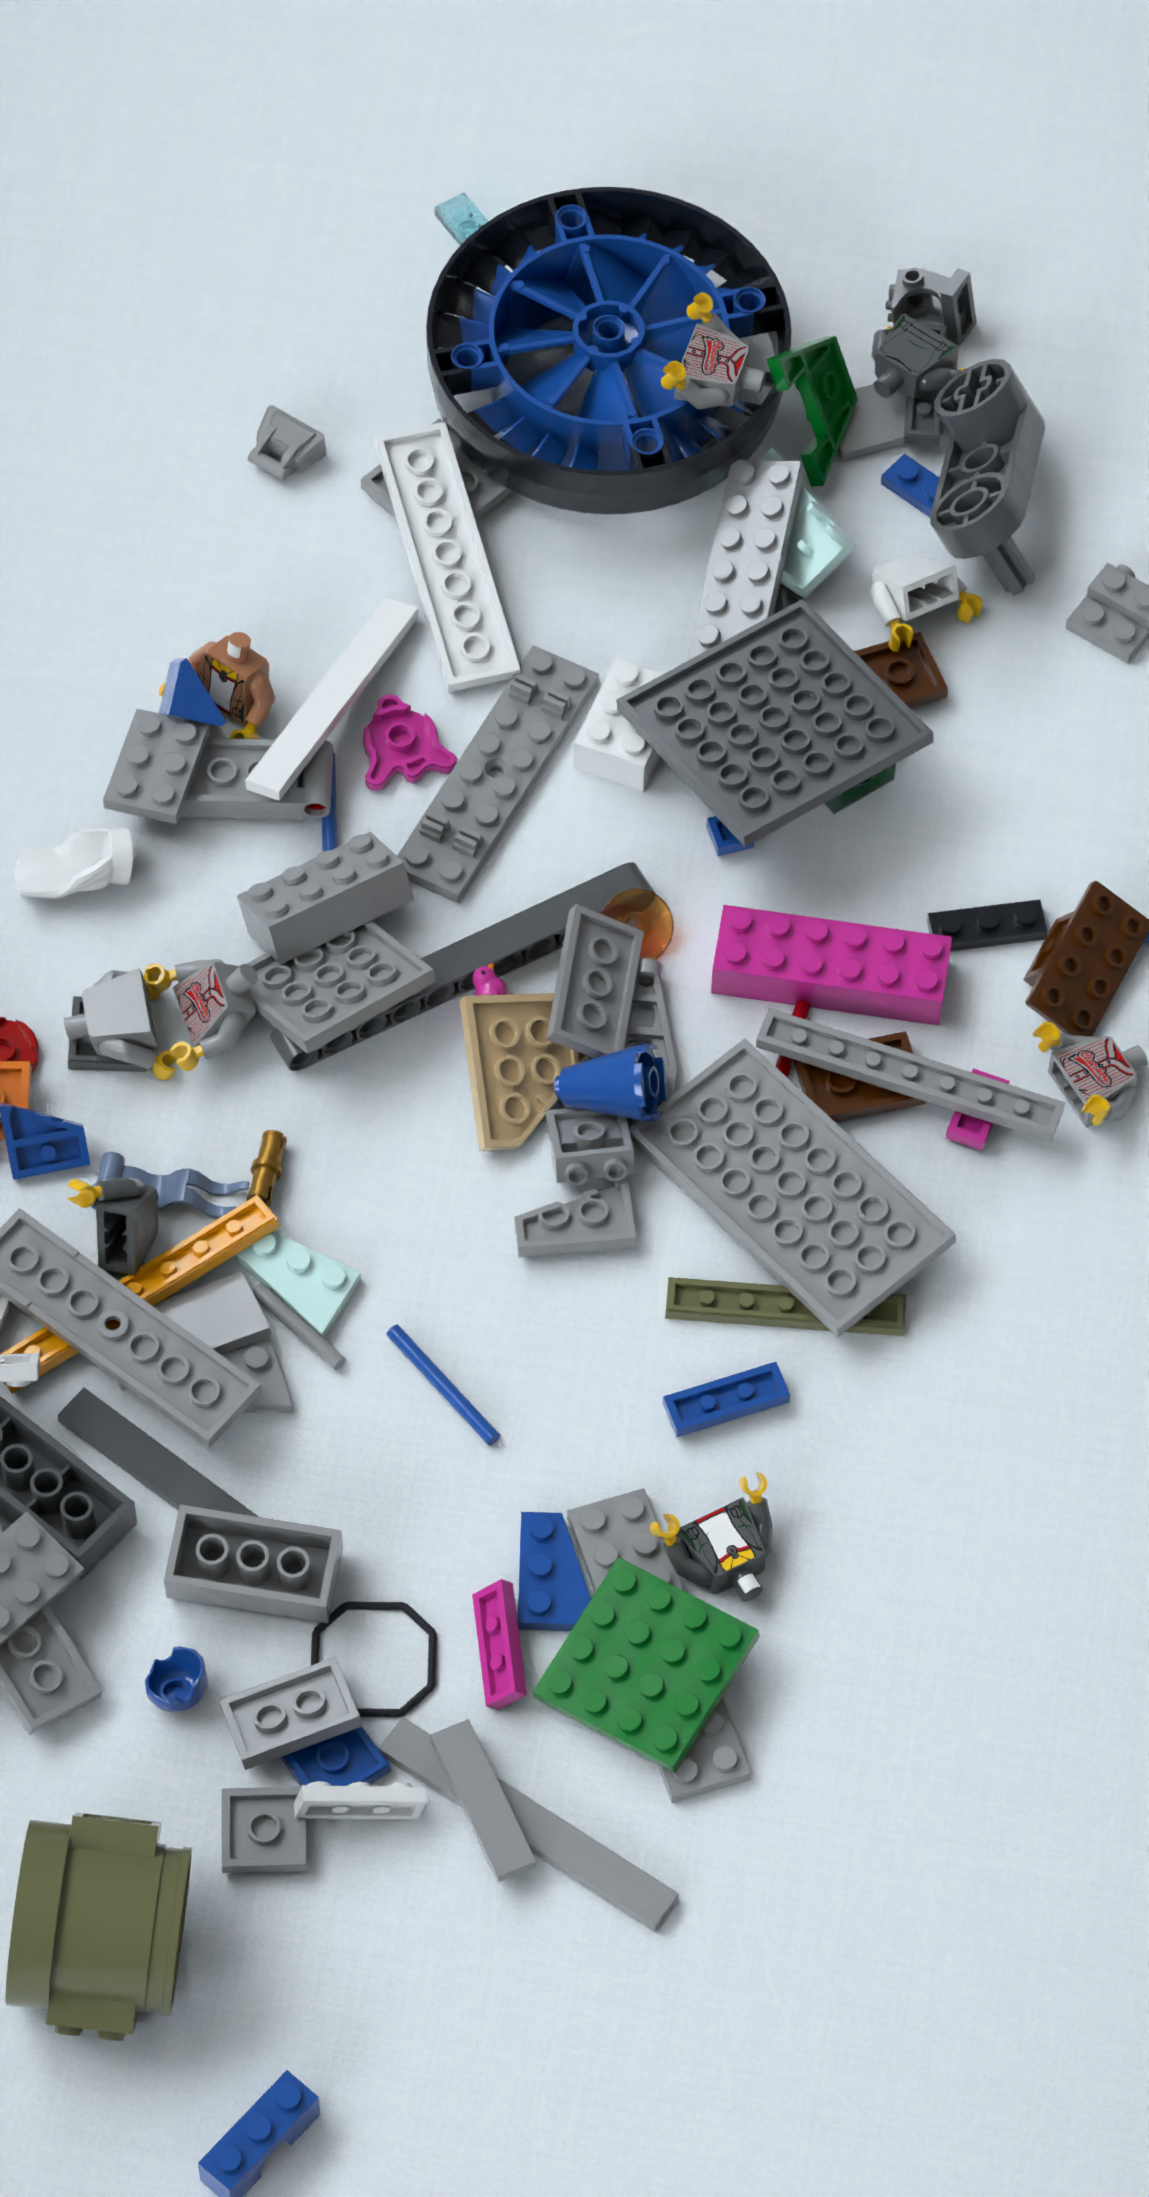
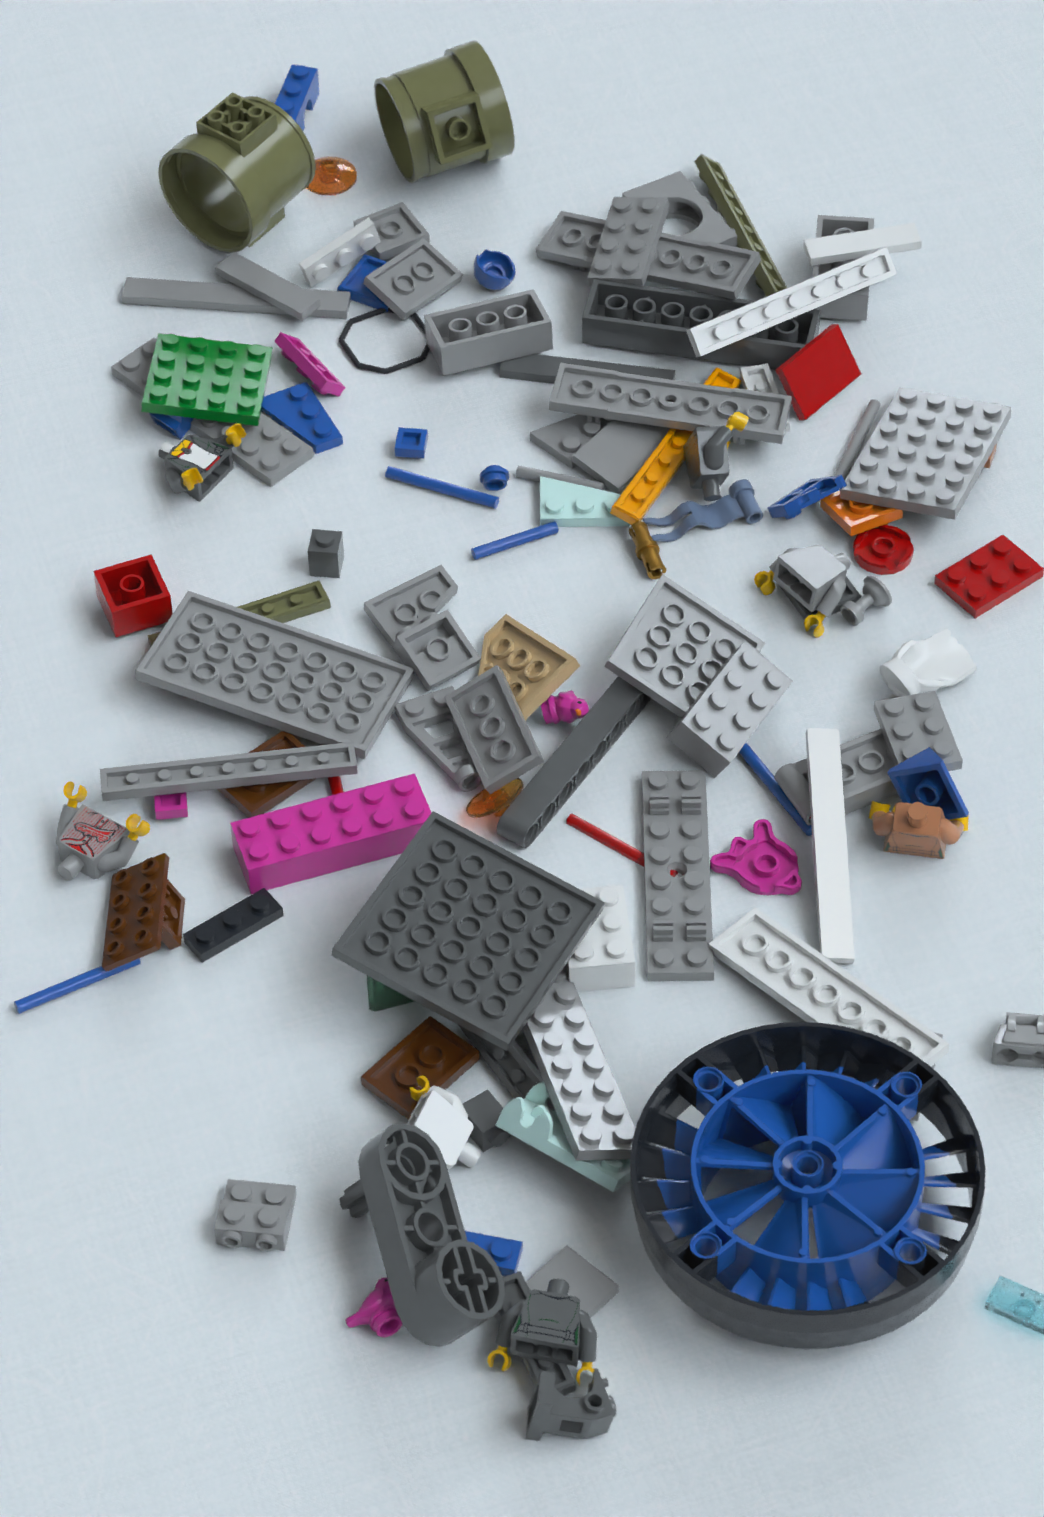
camera: 155 degrees right, 10 degrees down
(62, 982) = (874, 594): none -> light grey piece
(212, 1002) = (758, 614): light grey torso -> none
(282, 2017) = (333, 176): none -> clear orange dish
(377, 1354) = (494, 478): none -> blue plate
(405, 1265) = (514, 540): none -> blue bar
(444, 1459) = (411, 442): none -> blue plate
(444, 1931) = (237, 172): none -> olive cylinder
(539, 847) = (608, 840): none -> red bar
(616, 1084) = (432, 667): blue cone -> none
(640, 1333) = (325, 553): none -> dark grey brick
(713, 362) = (690, 1141): light grey torso -> none
(726, 1399) = (245, 547): blue plate -> none
(826, 394) = (606, 1243): green wing -> none
(850, 596) = (484, 1113): none -> dark grey brick
(900, 1372) = (133, 595): none -> red brick
(1053, 470) = (378, 1311): none -> dark pink animal

